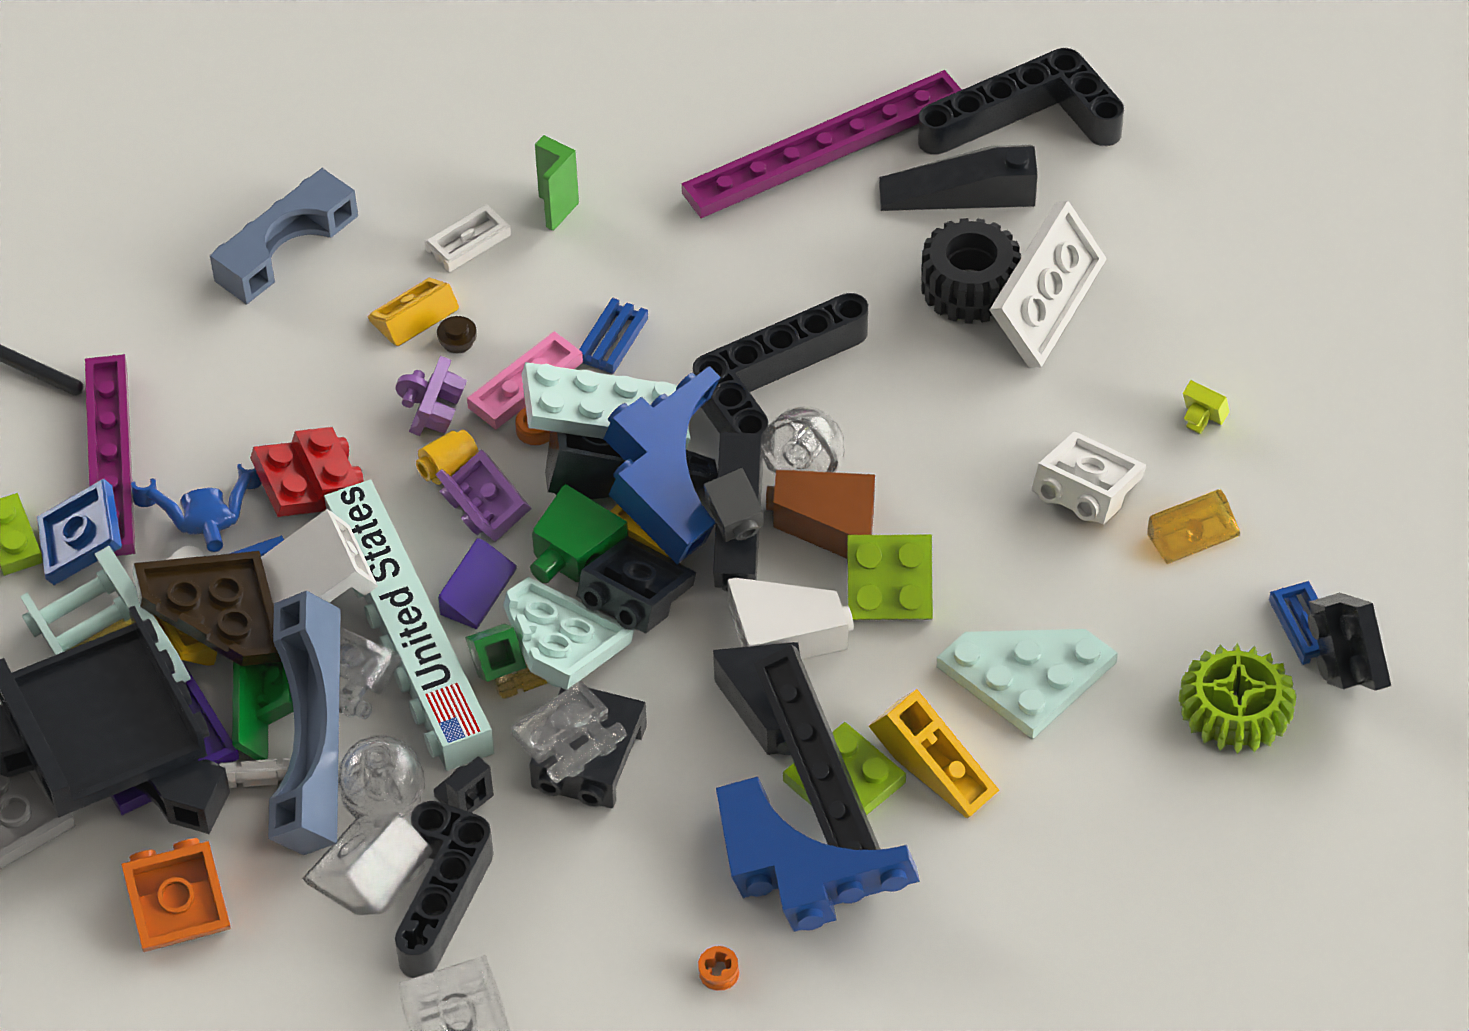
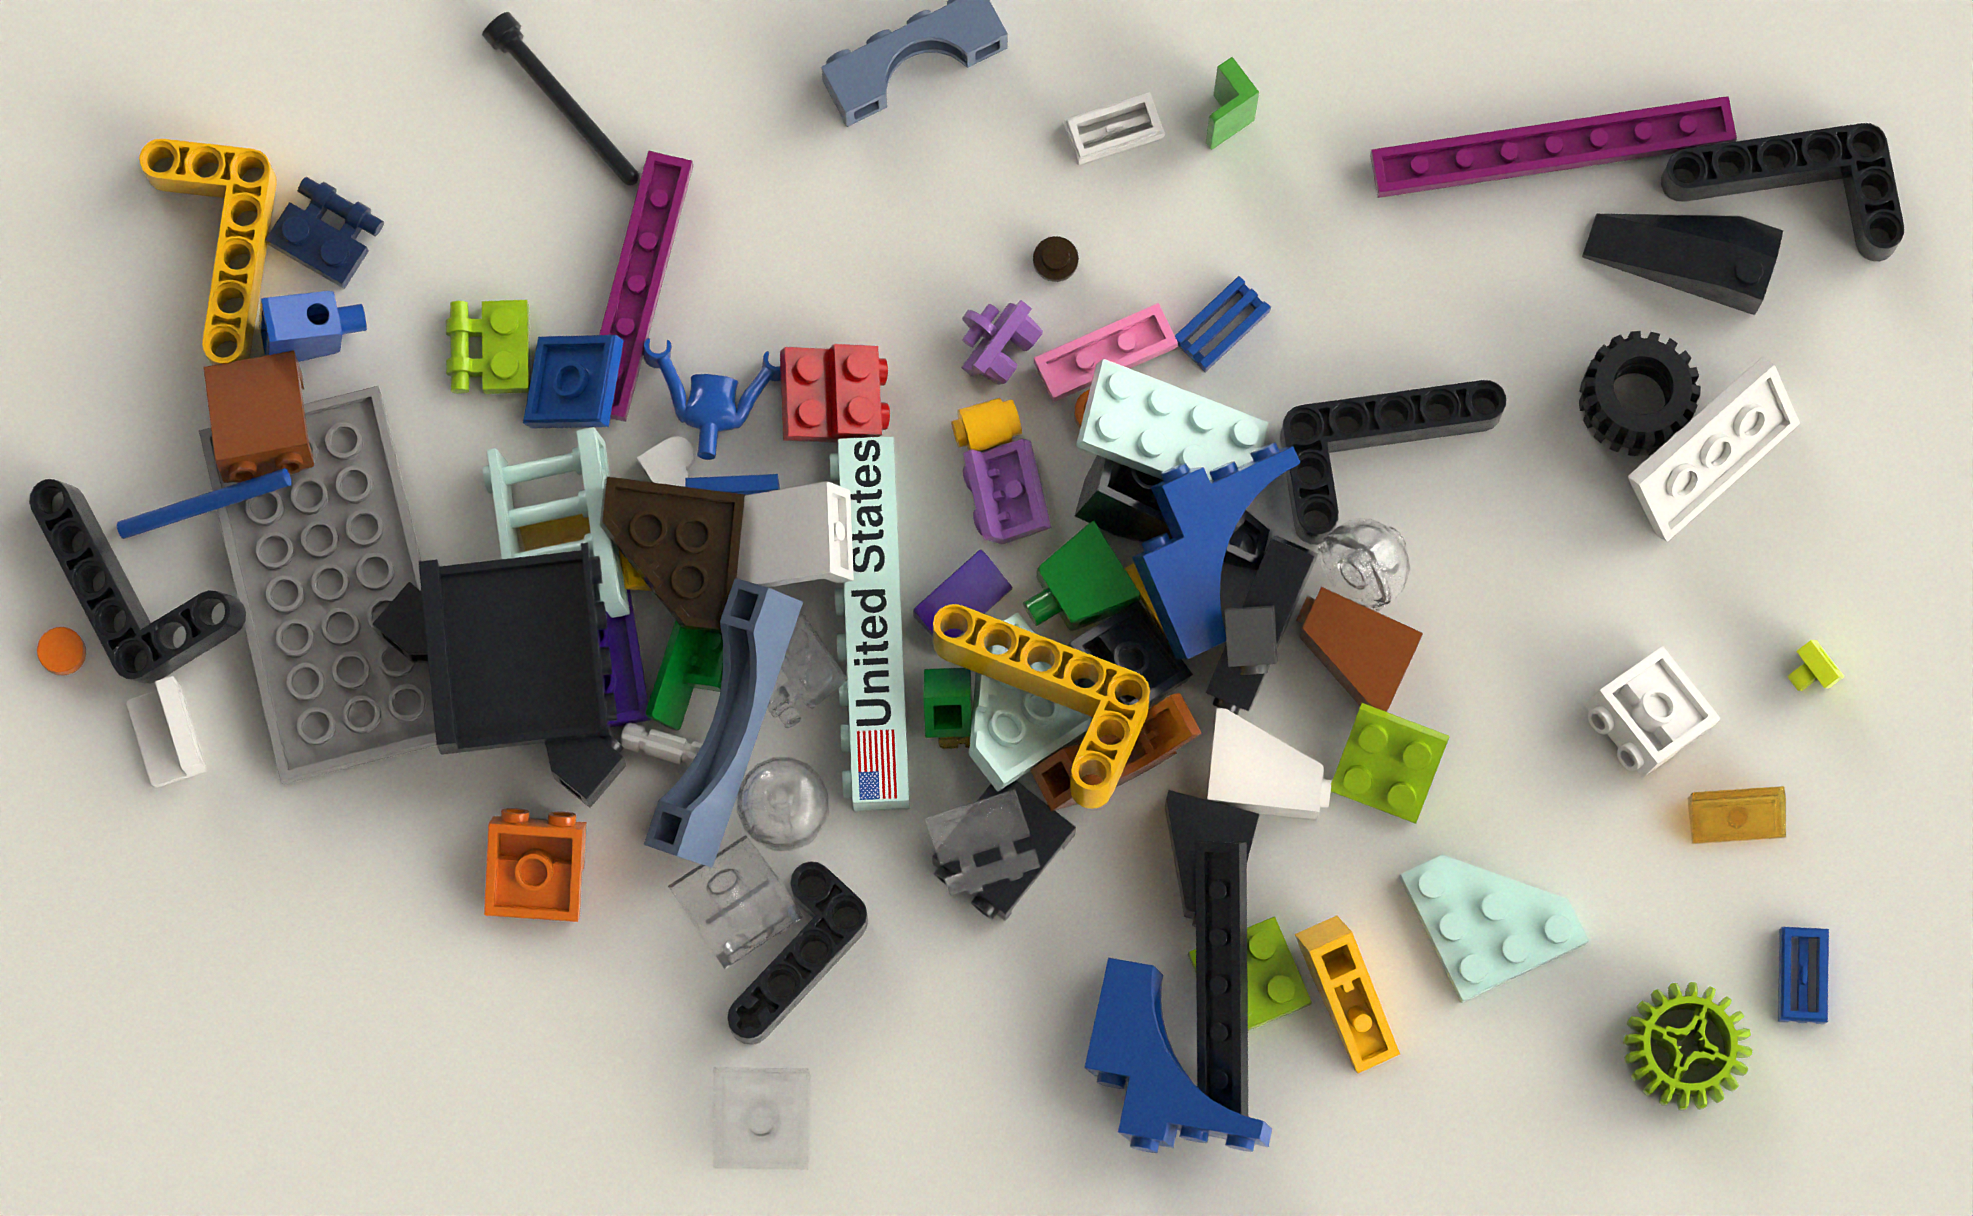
camera: 20 degrees right, 25 degrees up
(414, 310) = (1022, 207): yellow slope -> none
(467, 786) = (859, 850): black bracket -> none
(579, 584) = (1056, 686): none -> yellow beam
(658, 651) = (1163, 732): none -> dark orange arch
(709, 960) = (1035, 1137): orange bush -> none
(1348, 642) = (1823, 1040): black plate -> none

